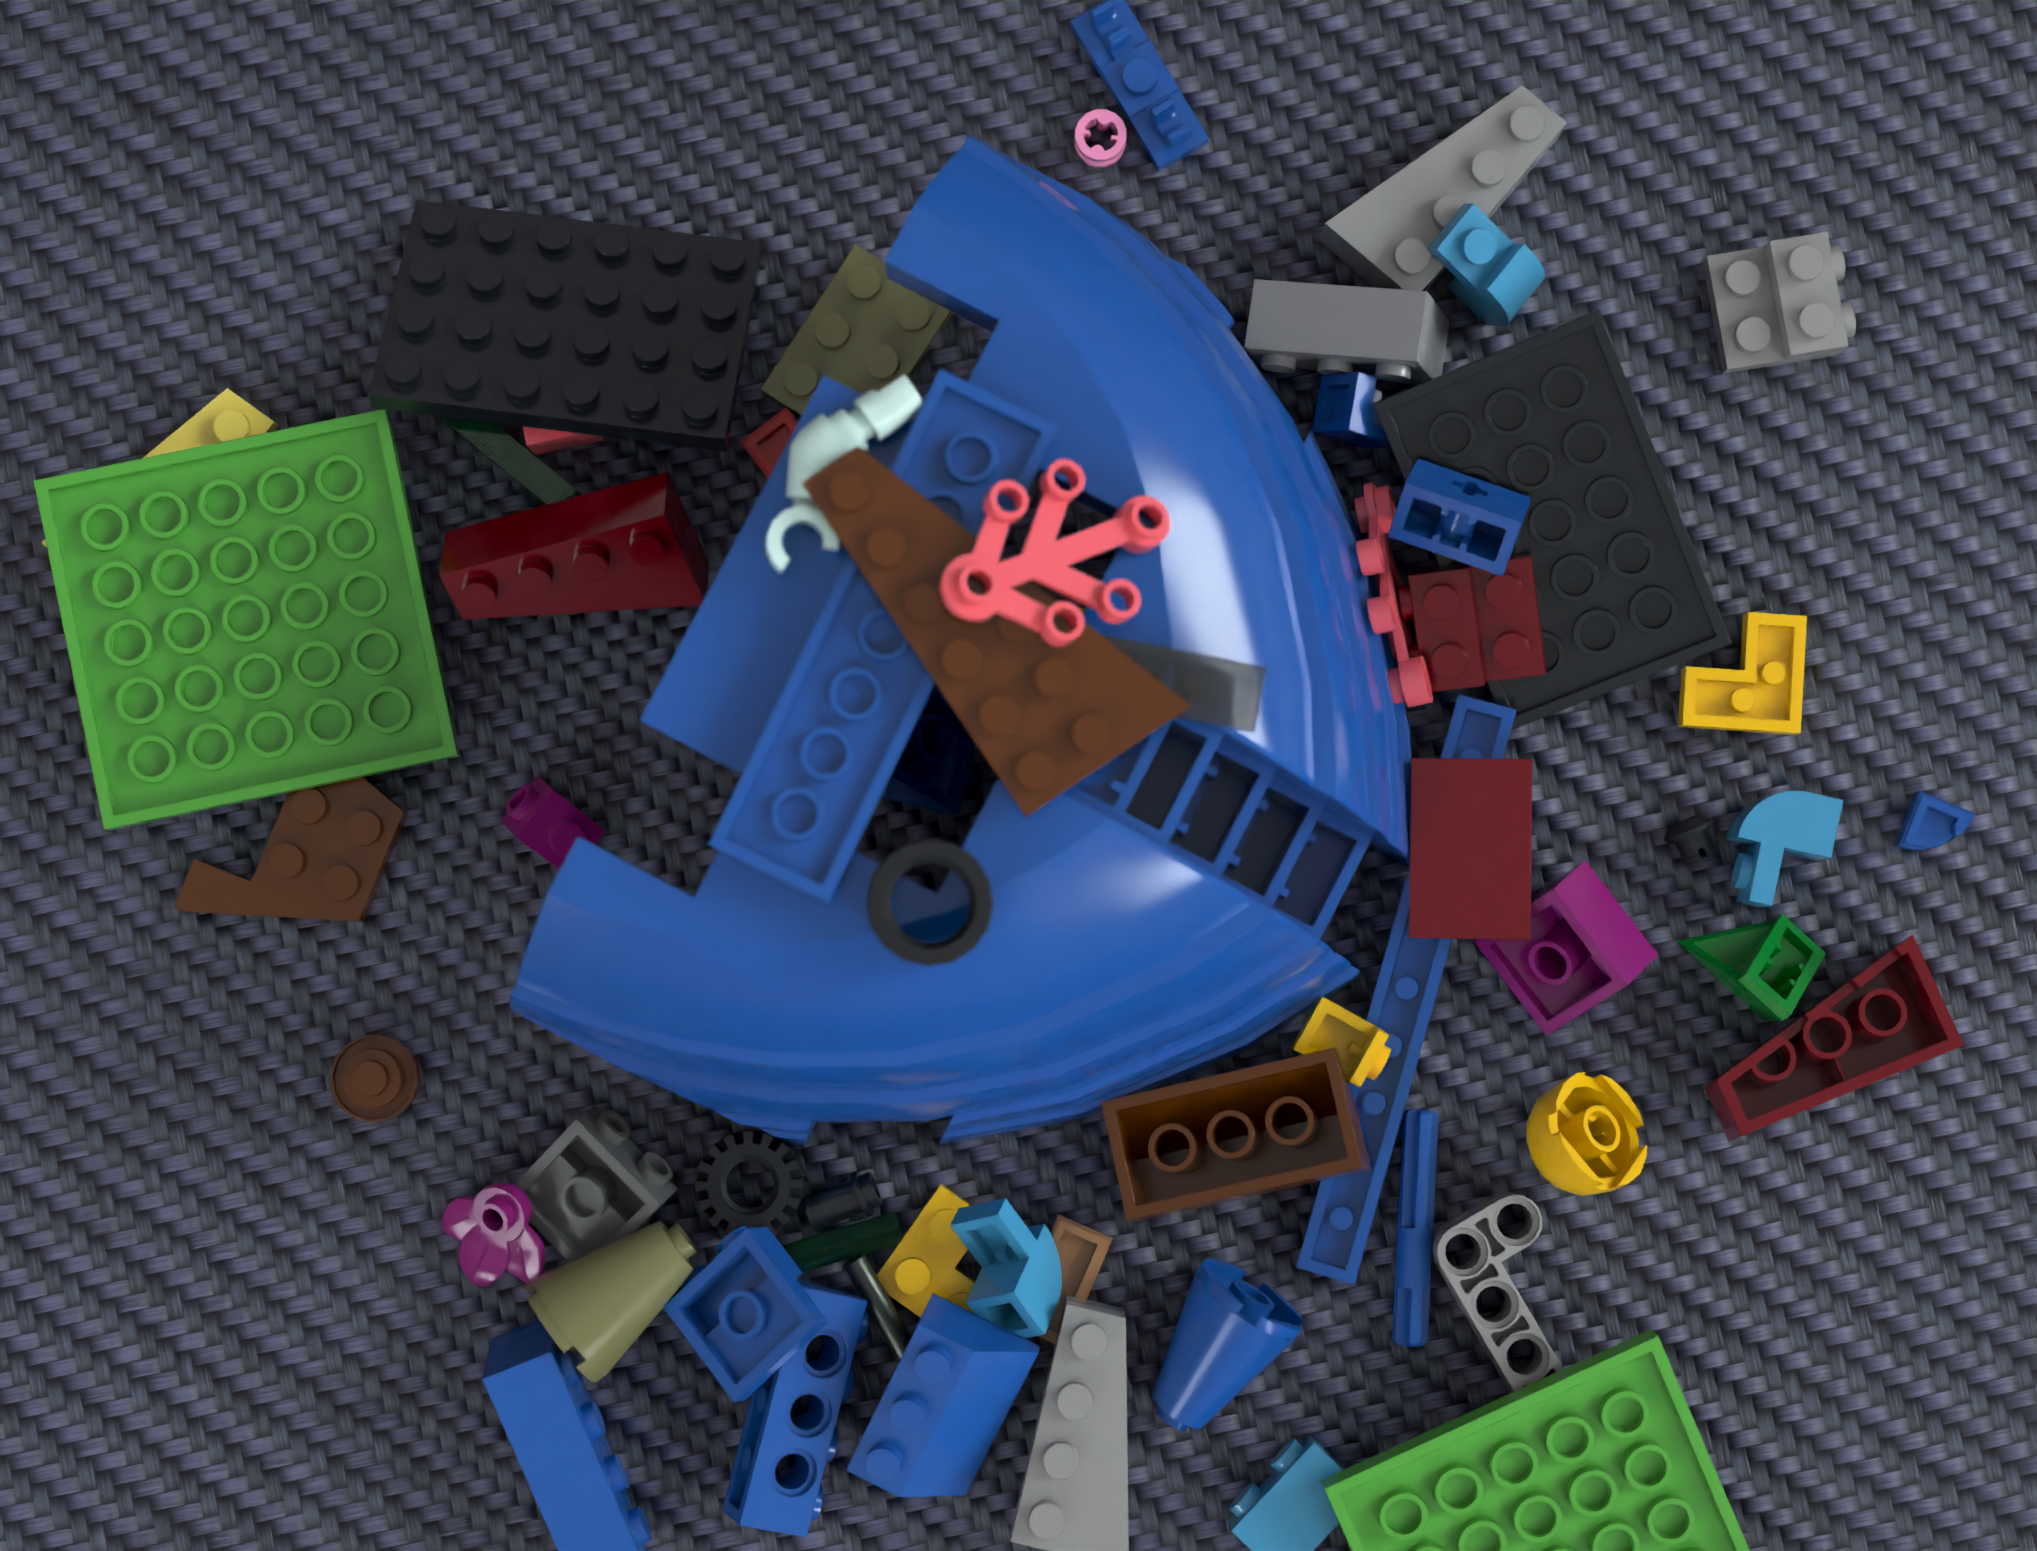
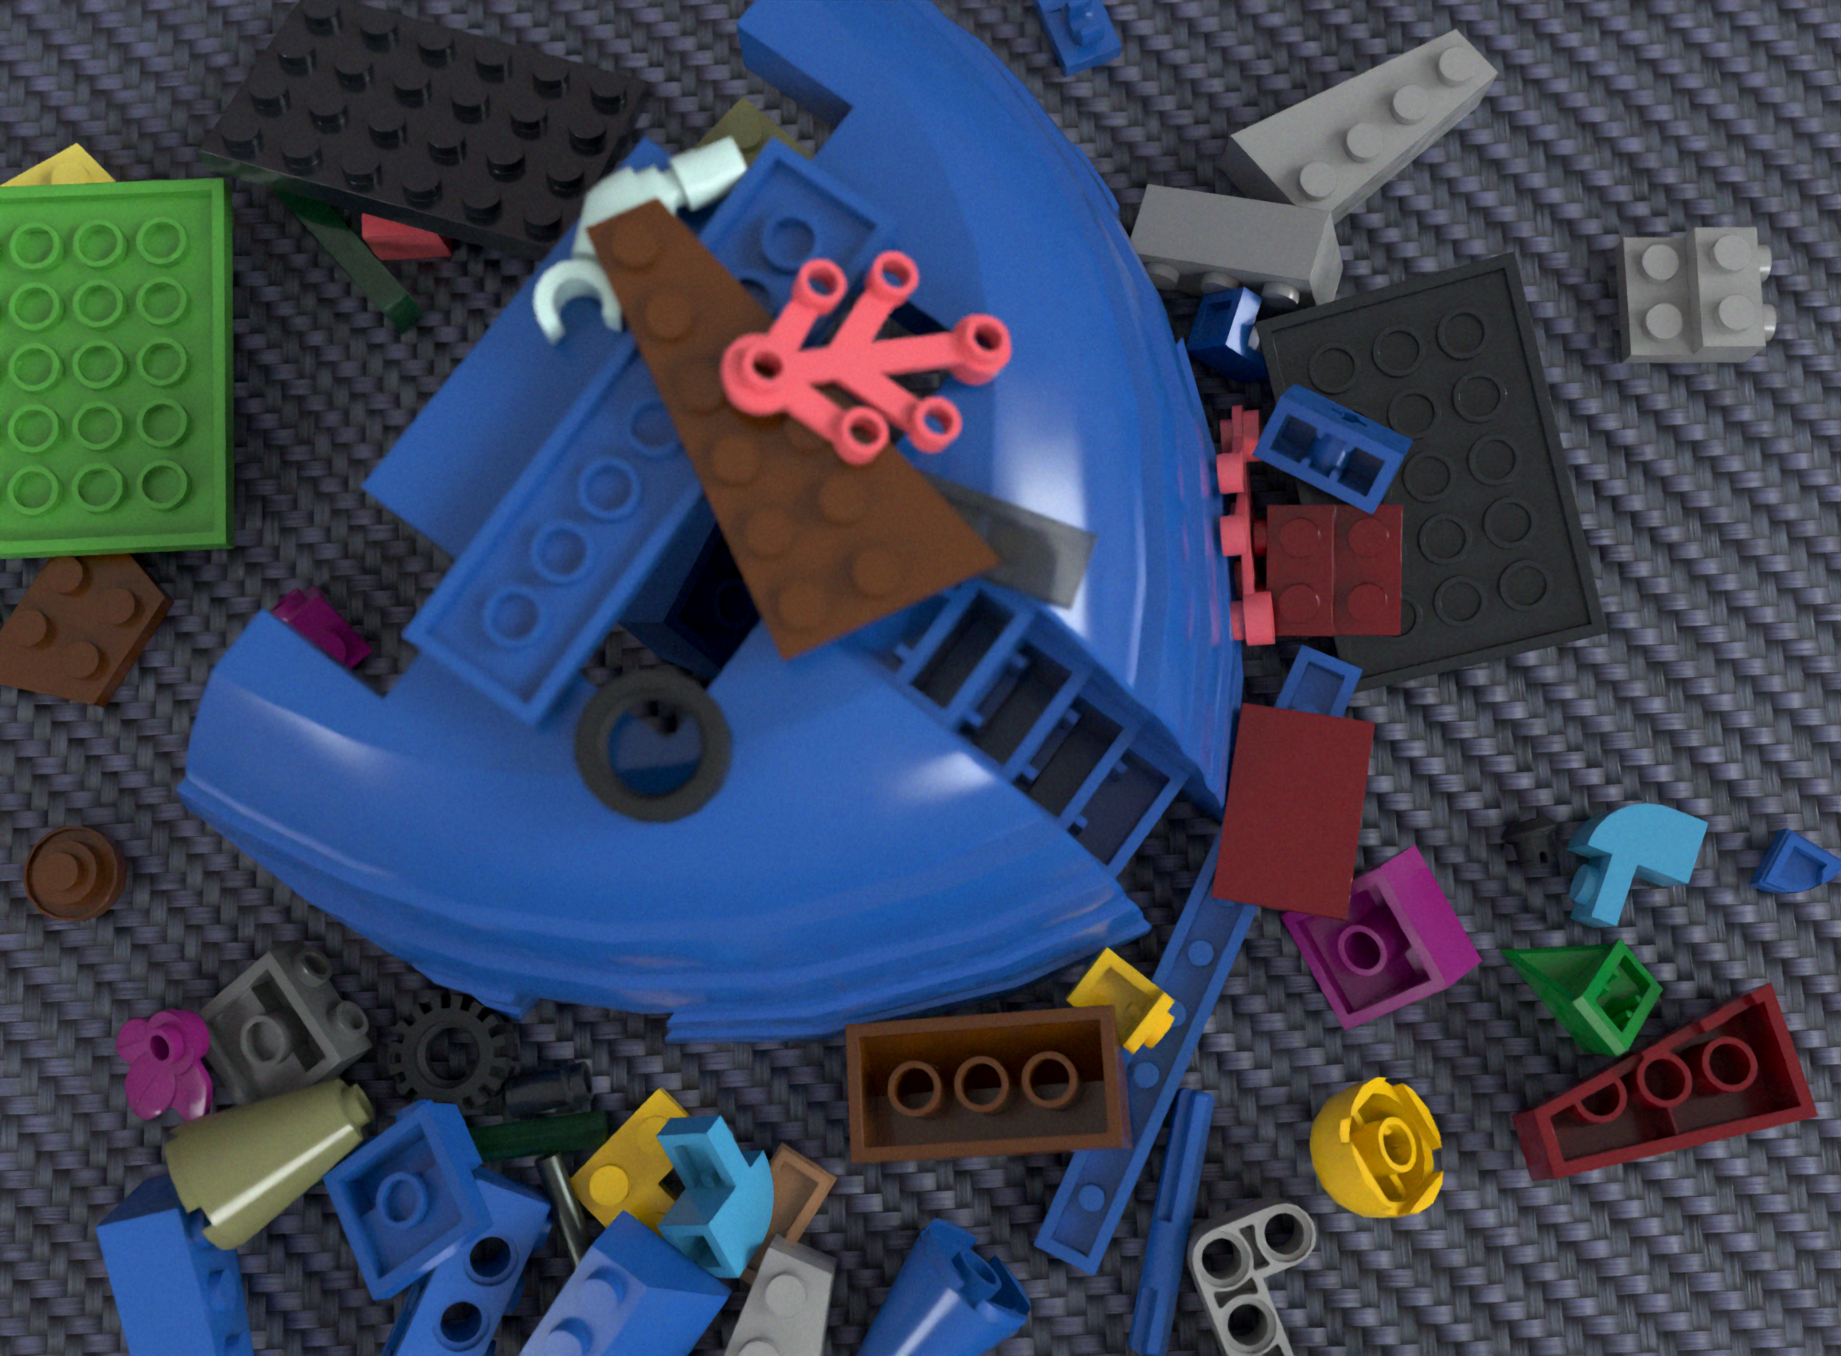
camera: 10 degrees right, 5 degrees down
(579, 556) = (369, 354): dark red wedge -> none
(1104, 121) = (1019, 17): bright pink bush -> none
(1488, 268) = (1399, 206): dark azure brick -> none
(1765, 690) = (1627, 697): yellow plate -> none

